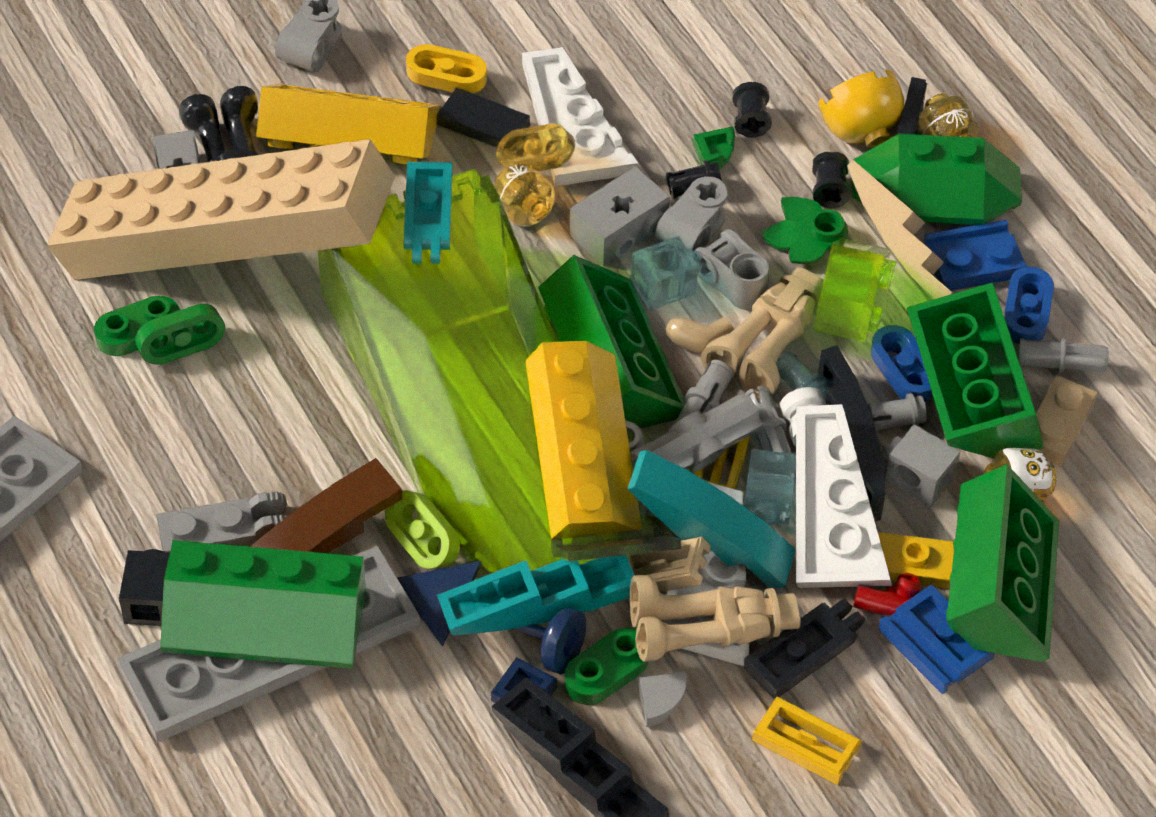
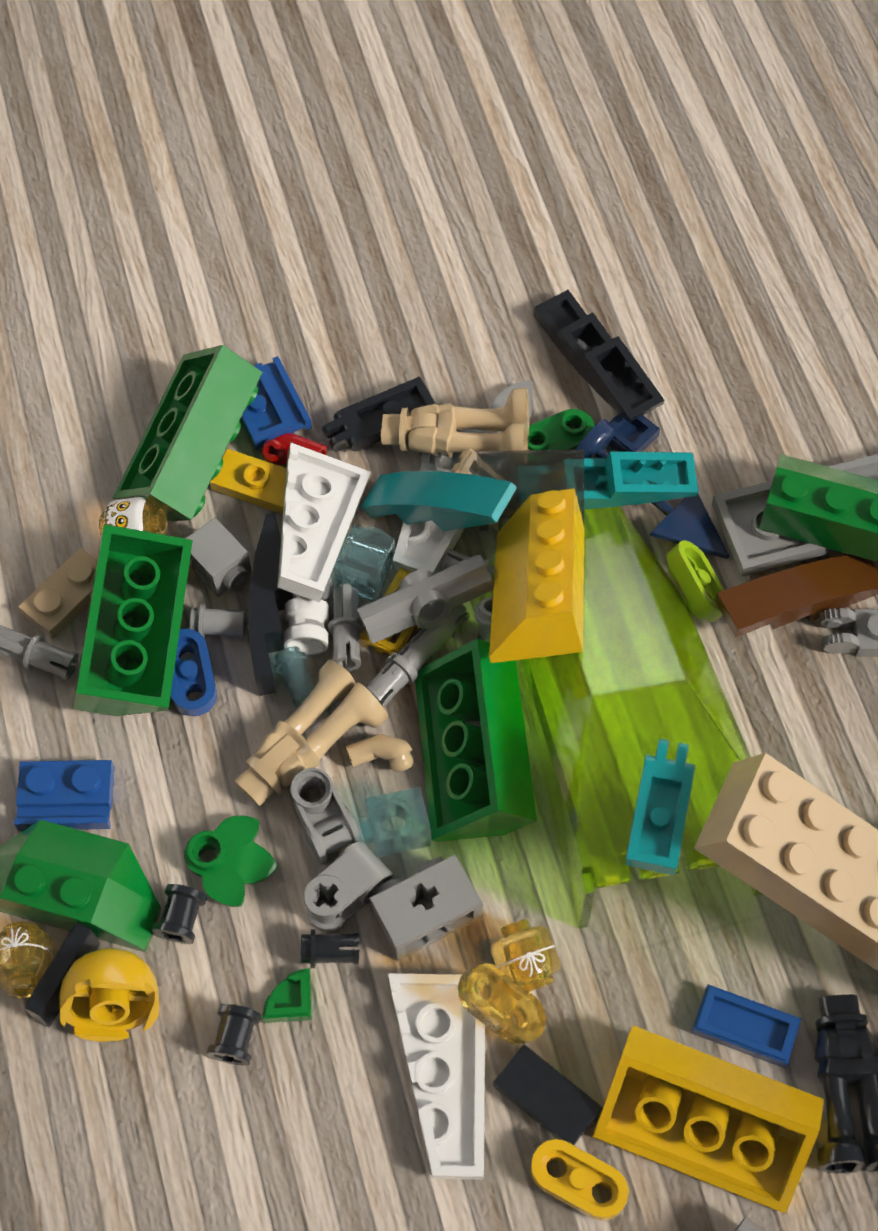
camera: 165 degrees left, 10 degrees up
(802, 746) = (407, 371): yellow tile -> none
(851, 289) = (206, 750): clear neon green brick -> none
(897, 228) = (139, 809): tan slope -> none
(1028, 313) = (37, 716): blue plate -> none

